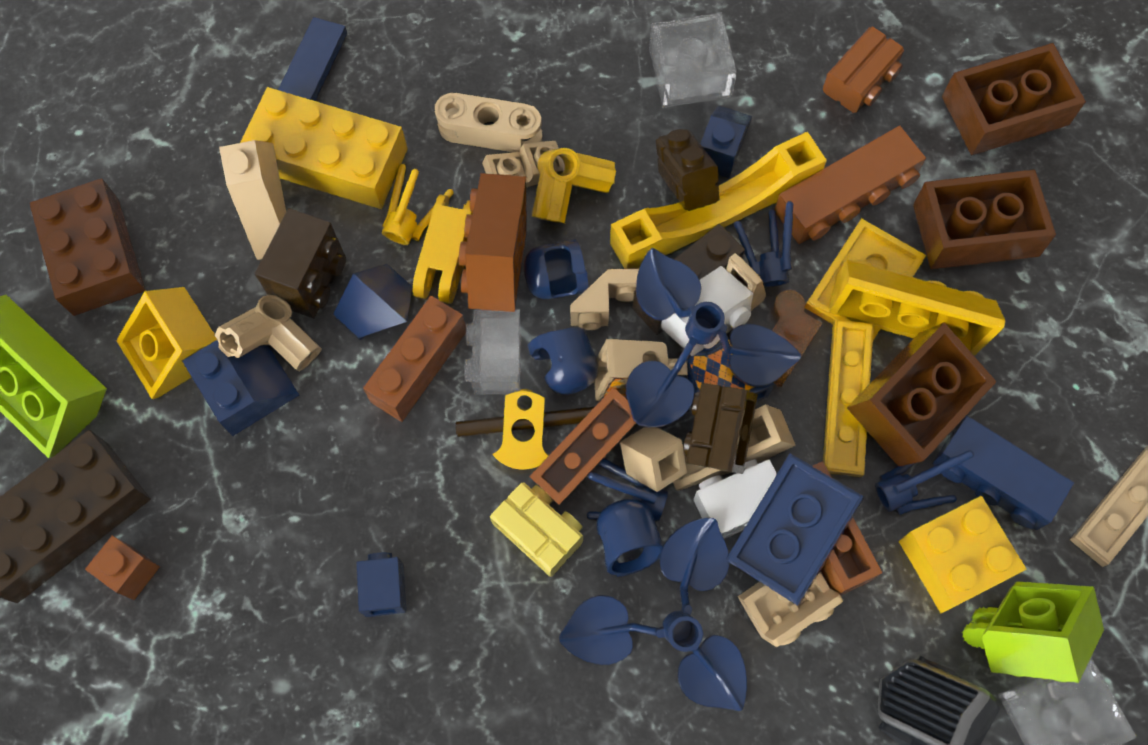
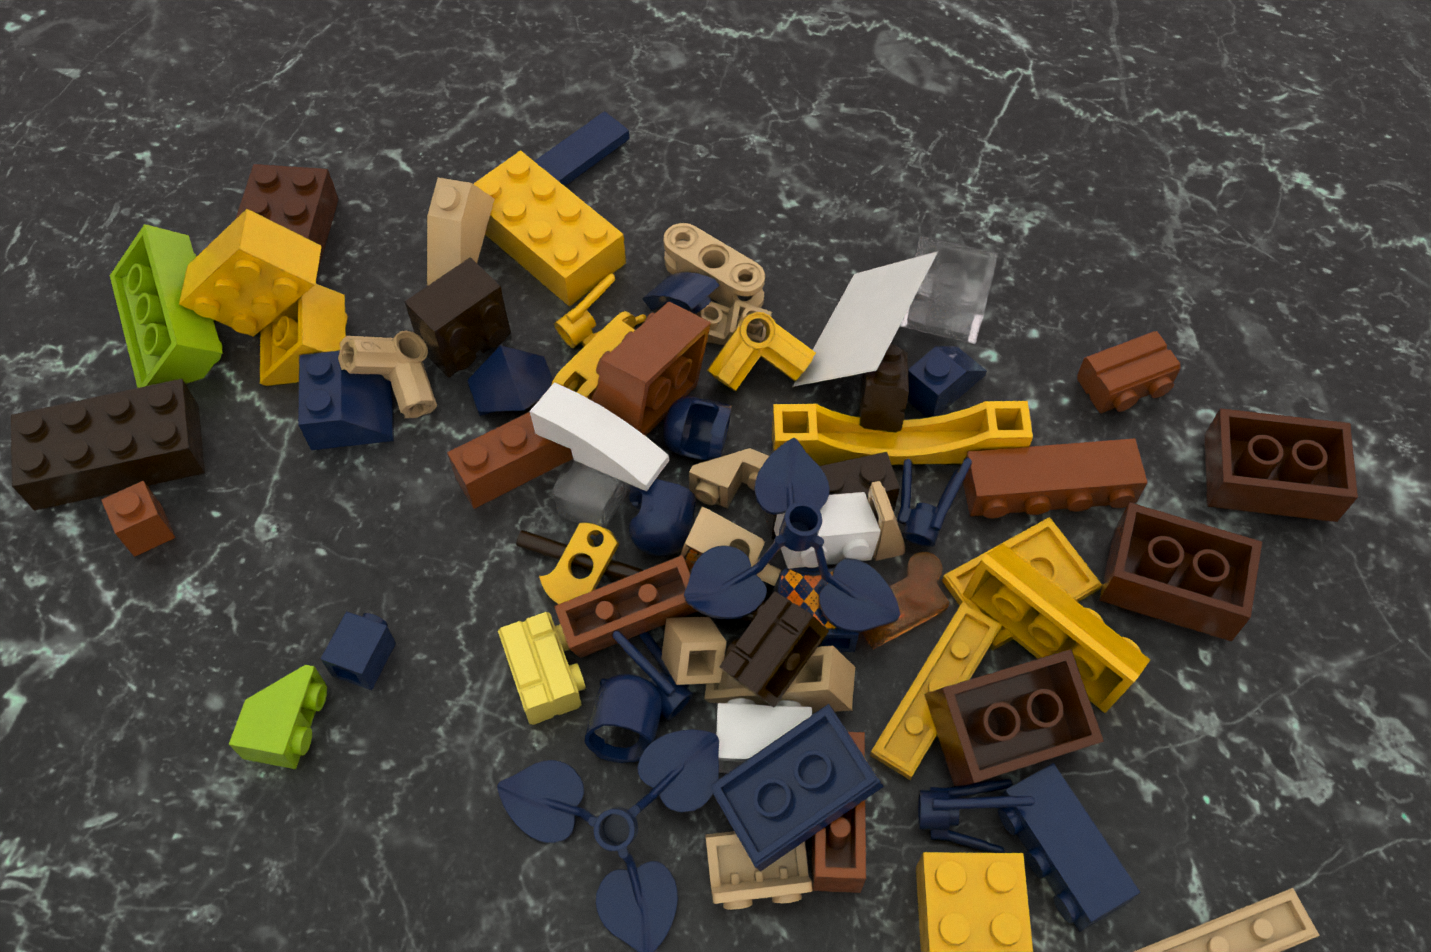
camera: 25 degrees right, 10 degrees down
(97, 308) = (250, 274): none -> yellow brick
(348, 675) = (278, 719): none -> lime slope
(476, 156) = (684, 290): none -> dark blue slope
(487, 318) = (597, 437): none -> white slope
(644, 115) = (866, 320): none -> white sticker

